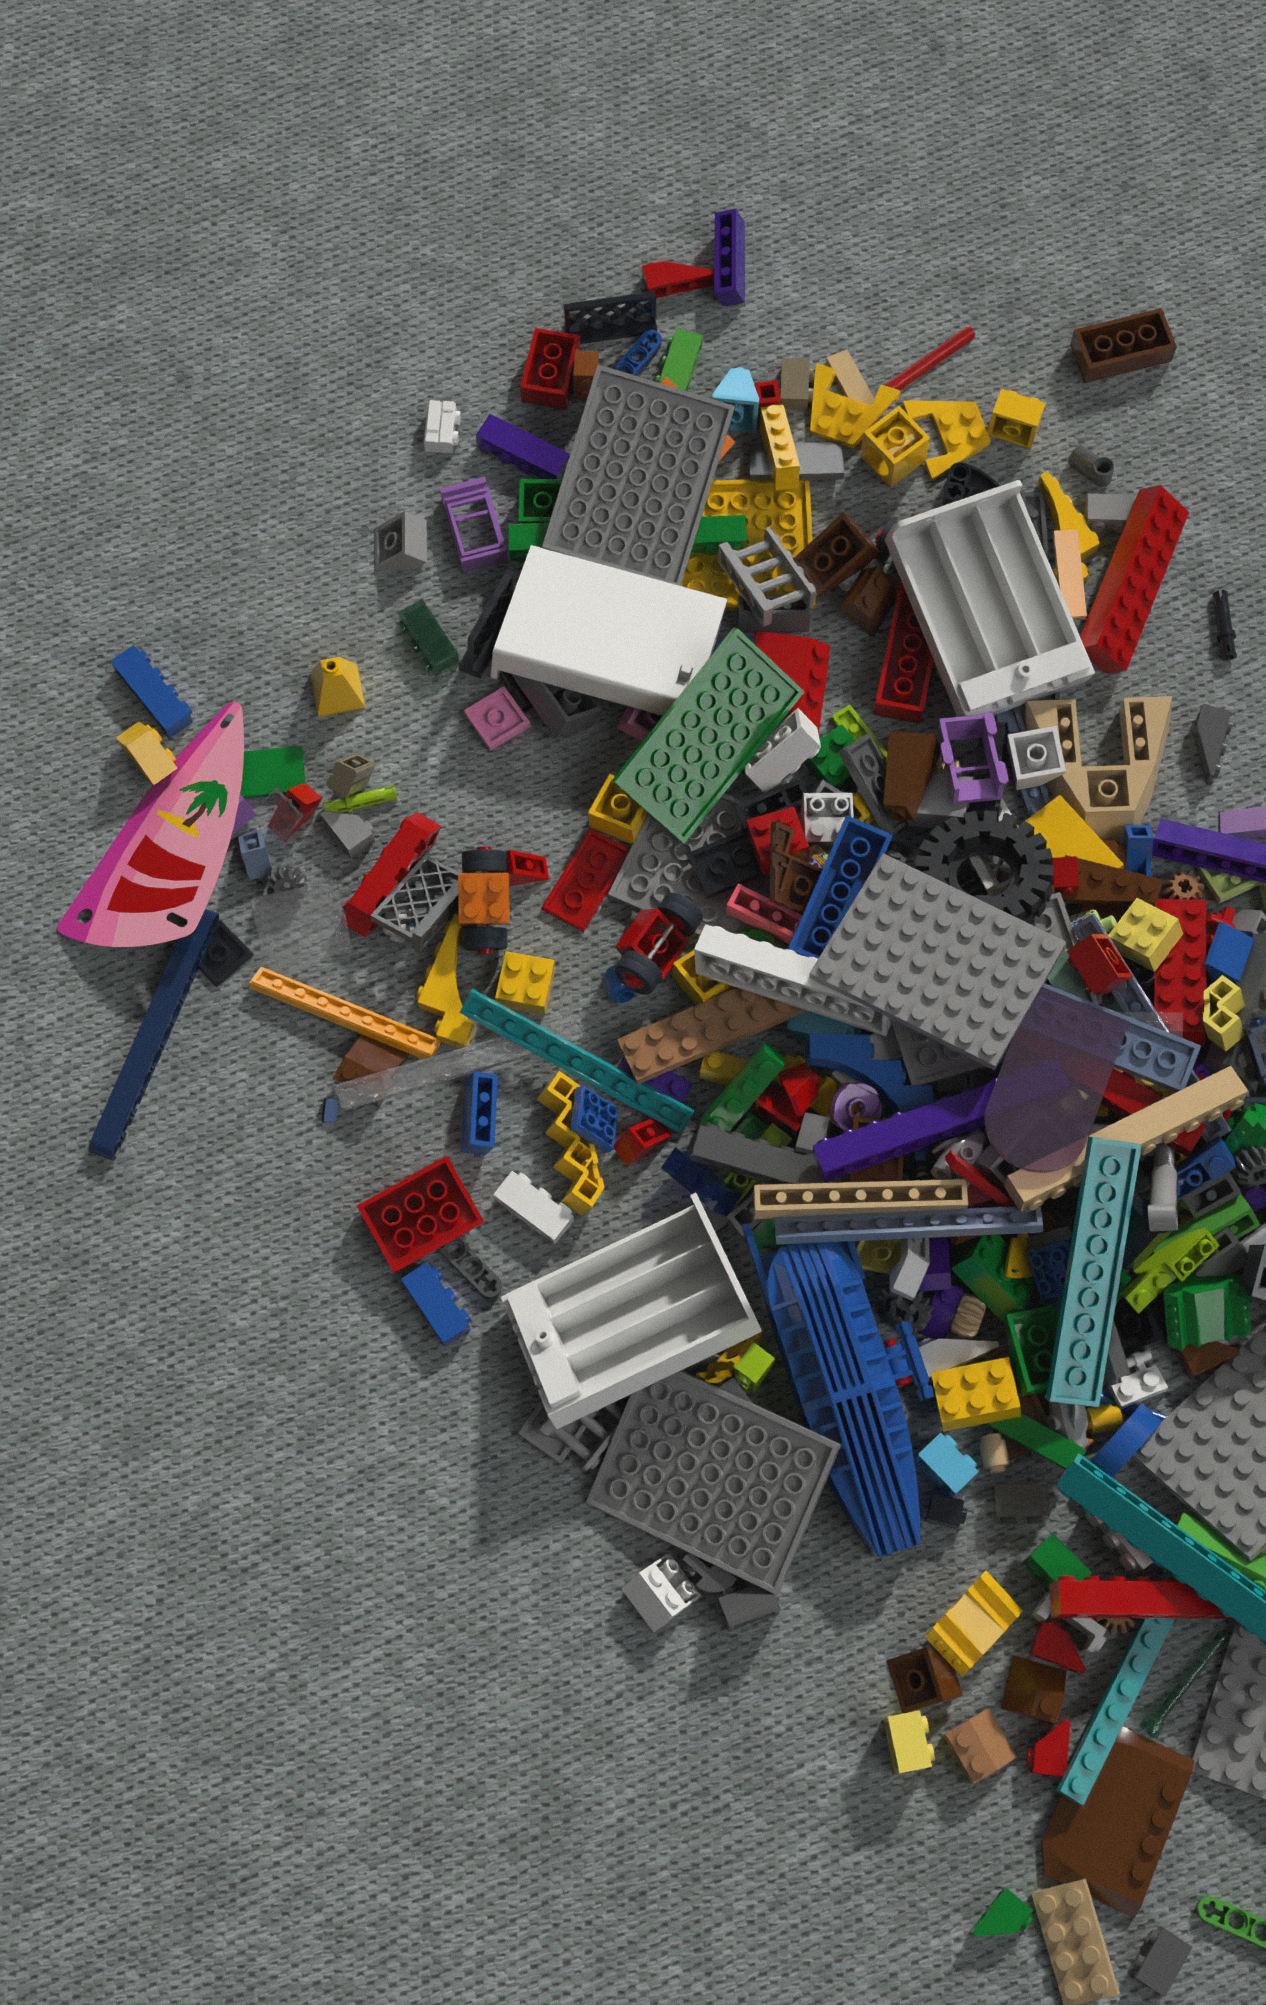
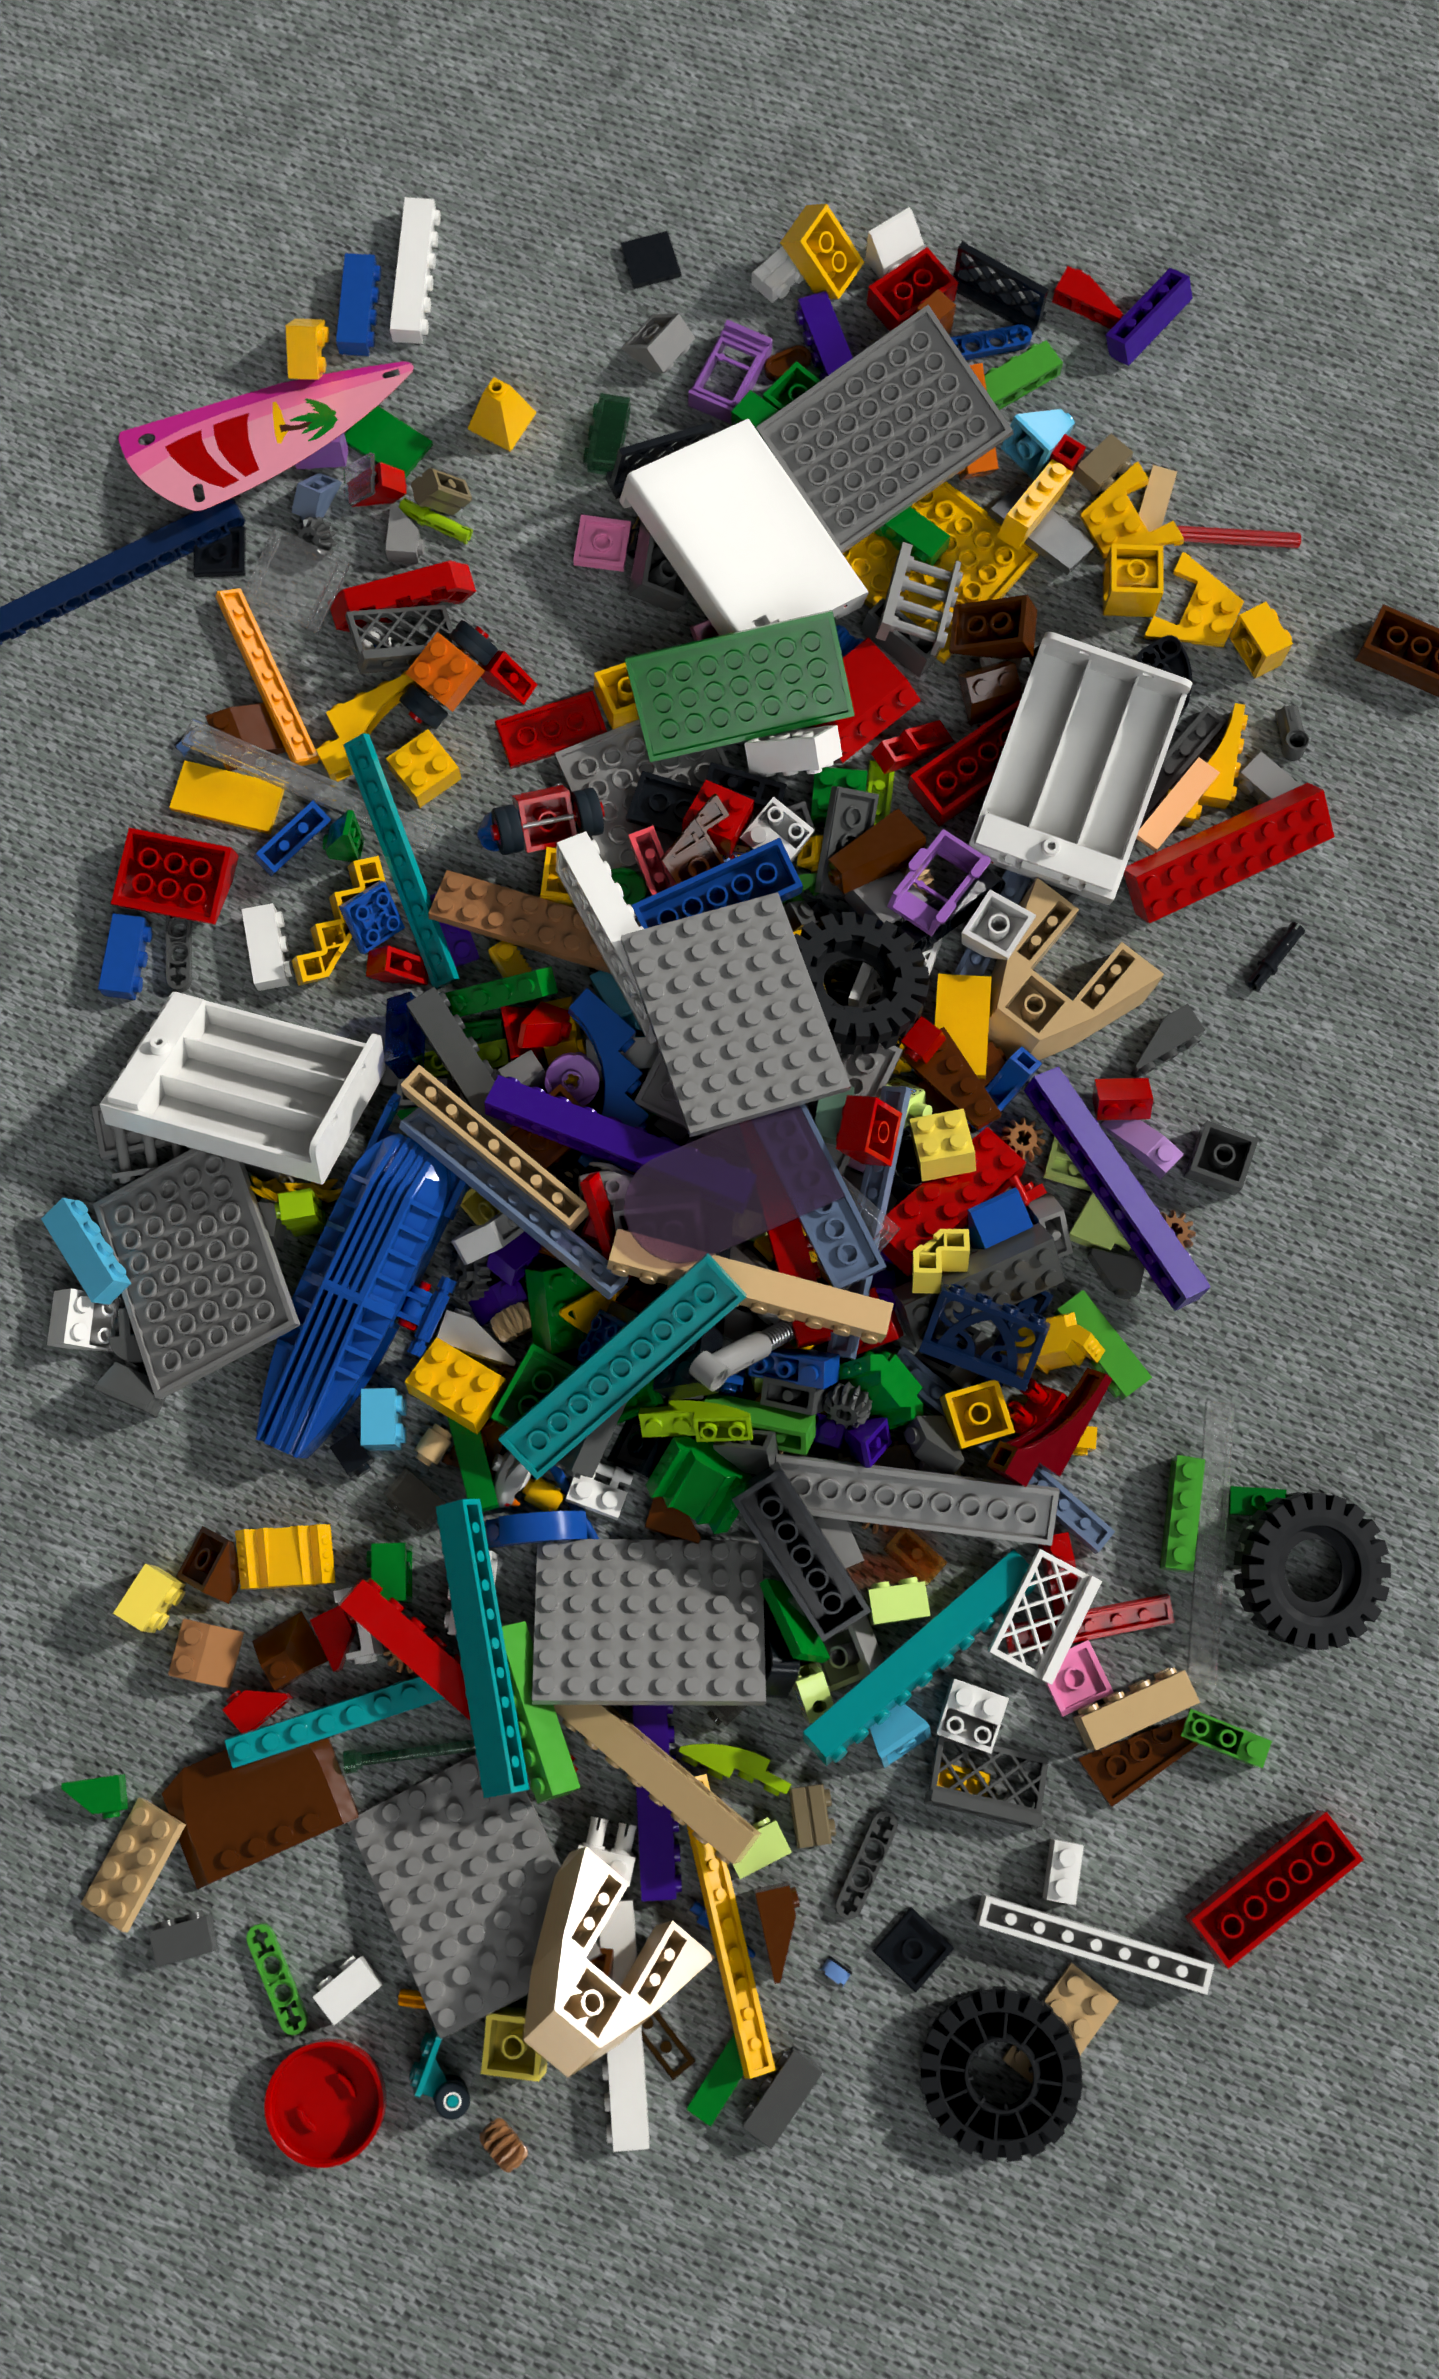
camera: 40 degrees right, 5 degrees up
(171, 634) = (413, 270): none -> white brick
(336, 490) = (650, 259): none -> black tile
(397, 1125) = (226, 797): none -> yellow tile
(465, 387) = (822, 251): none -> yellow brick
(505, 486) = (779, 363): none -> reddish brown tile
(508, 345) = (893, 243): none -> white slope
(519, 1080) = (344, 839): none -> green slope
(619, 1537) = (86, 1251): none -> medium azure brick
(850, 683) = (911, 746): none -> red slope
(1221, 804) = (1122, 1099): none -> red brick

